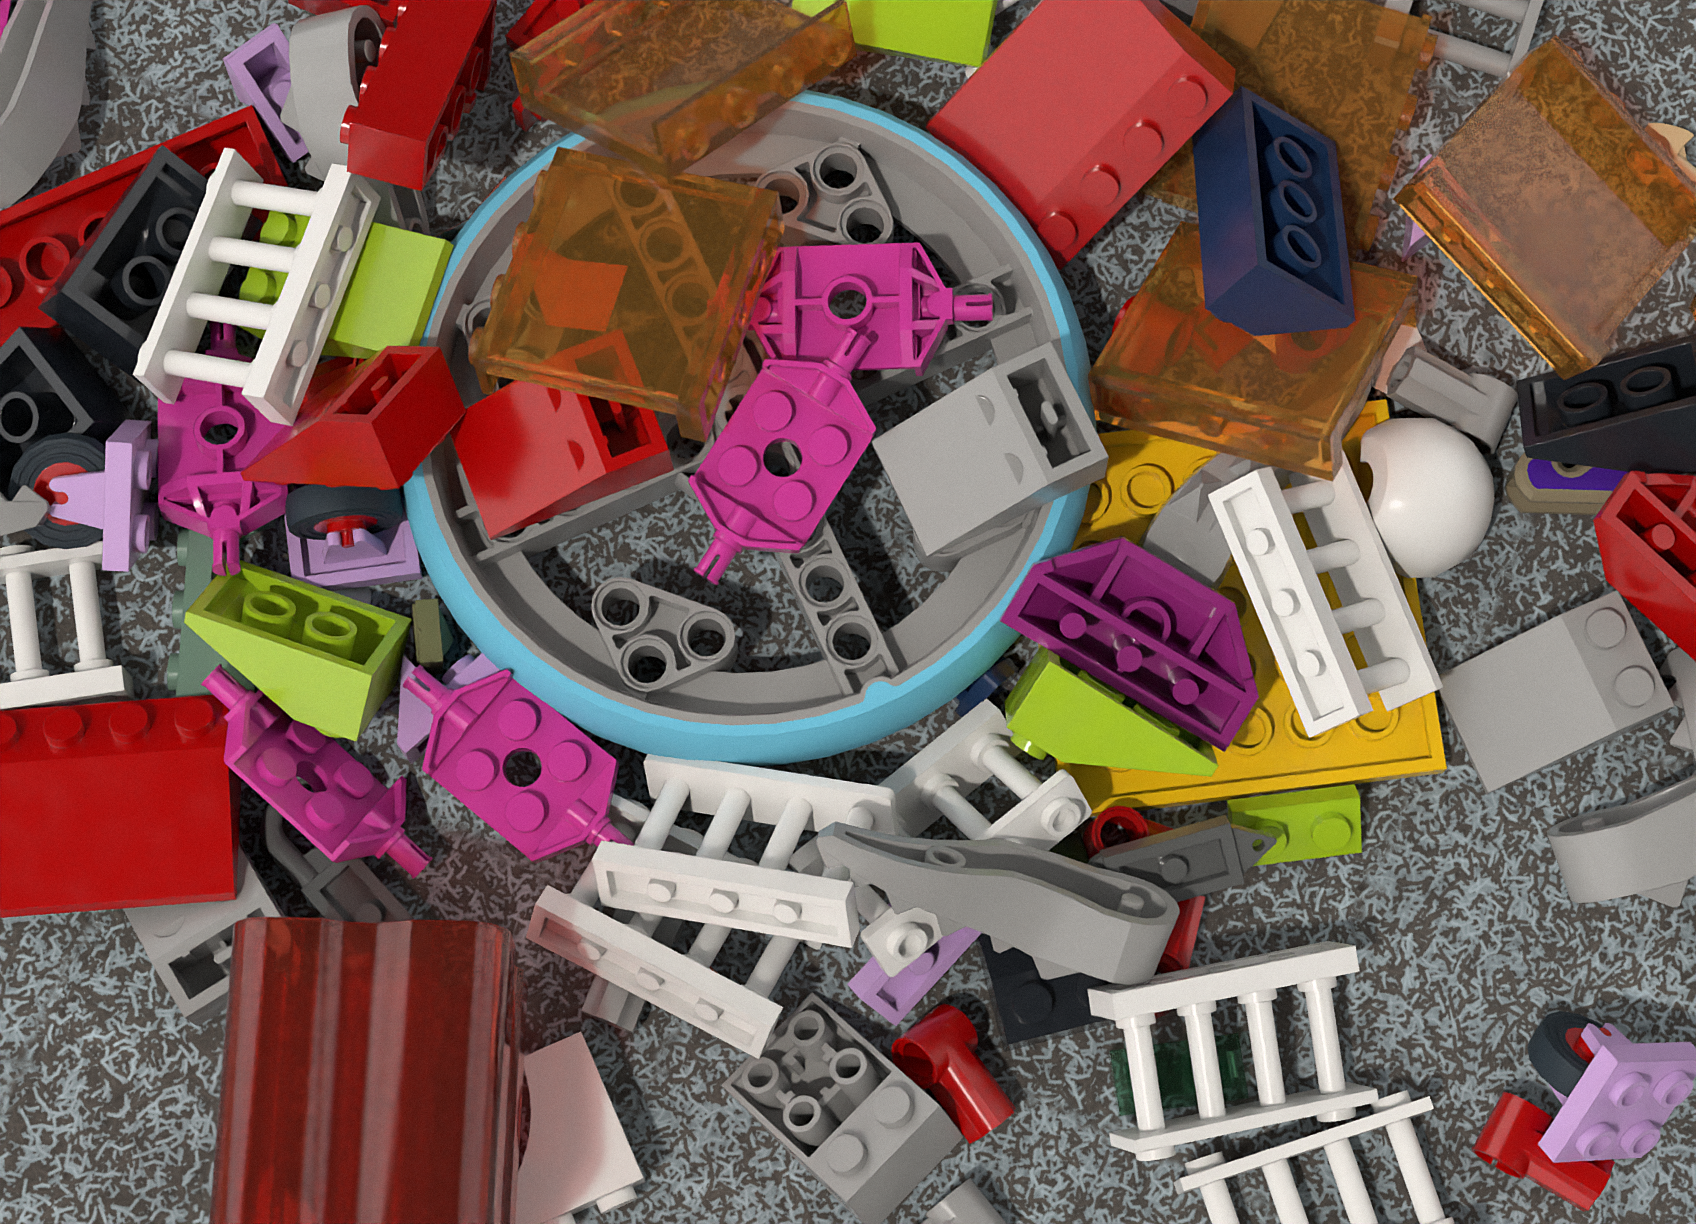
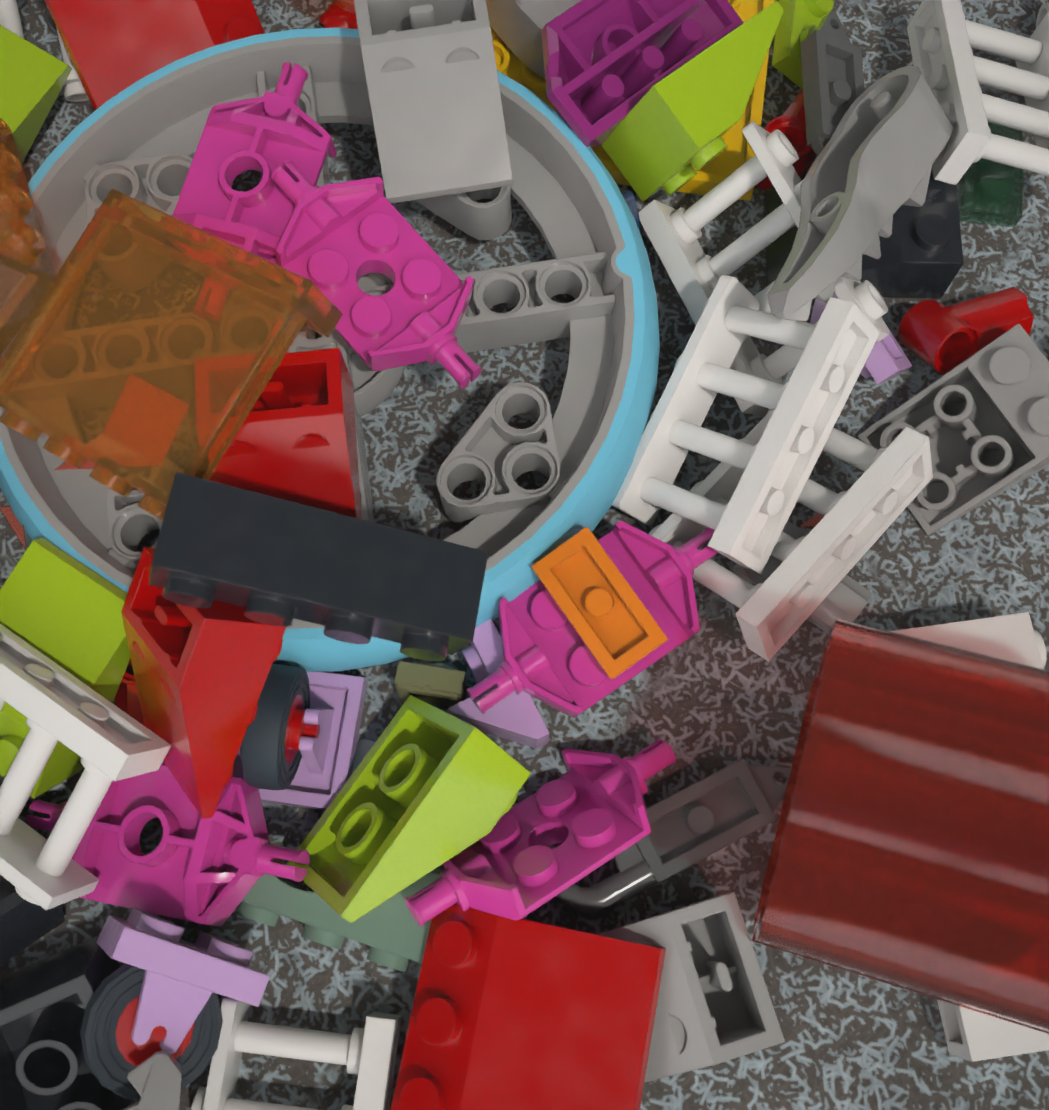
camera: 70 degrees left, 5 degrees down
(442, 500) = (317, 569): none -> black slope
(526, 760) = (600, 603): none -> orange plate

